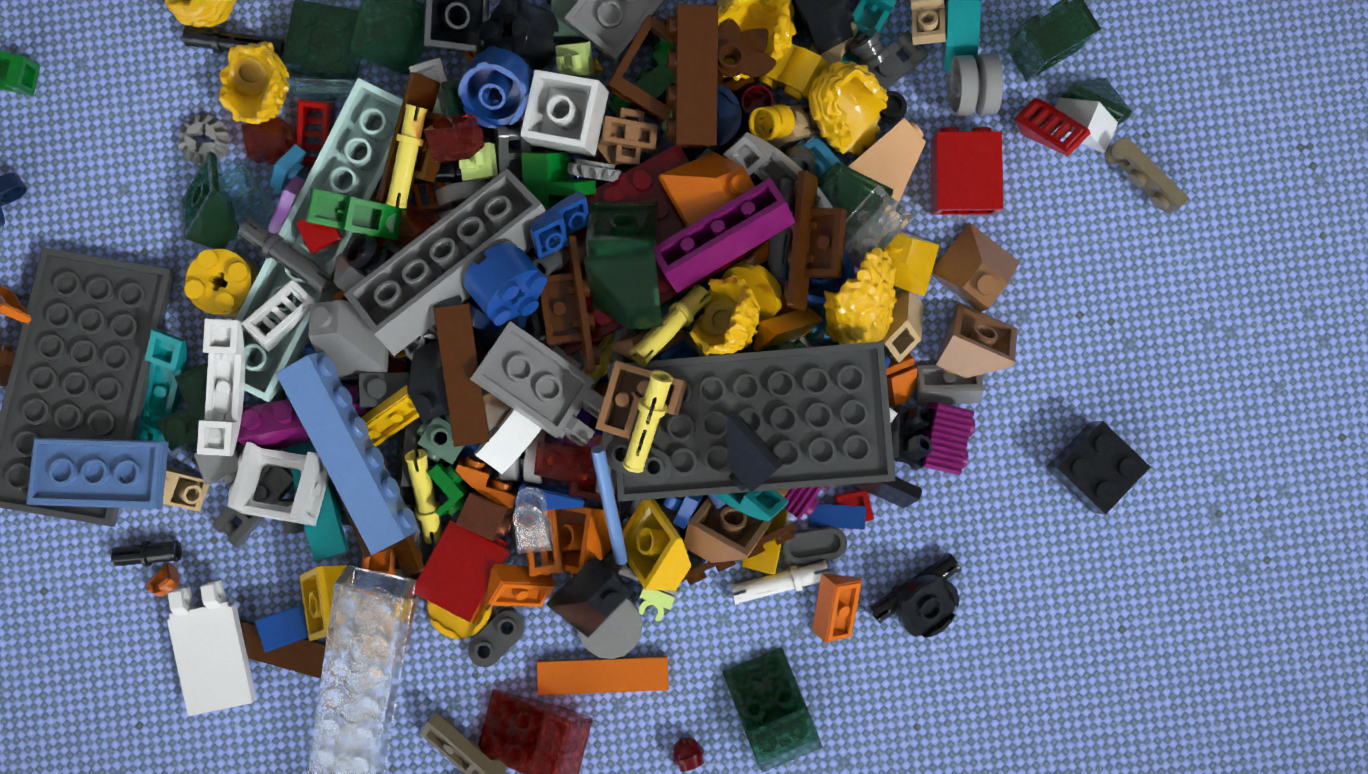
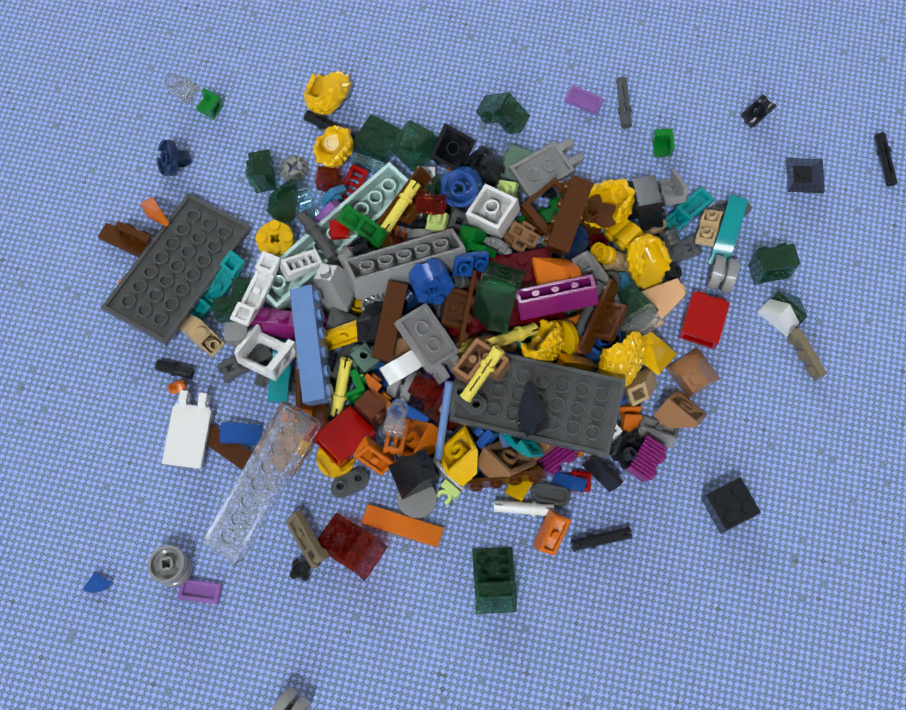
camera: 20 degrees right, 15 degrees down
(97, 473) = (171, 312): medium blue tile -> none
(149, 165) = (261, 171): none -> clear green brick
(317, 596) = (260, 420): yellow slope -> none
(687, 754) = (435, 587): dark red plate -> none
(927, 606) = (605, 550): black tile -> none
(1037, 114) = (756, 308): red slope -> none

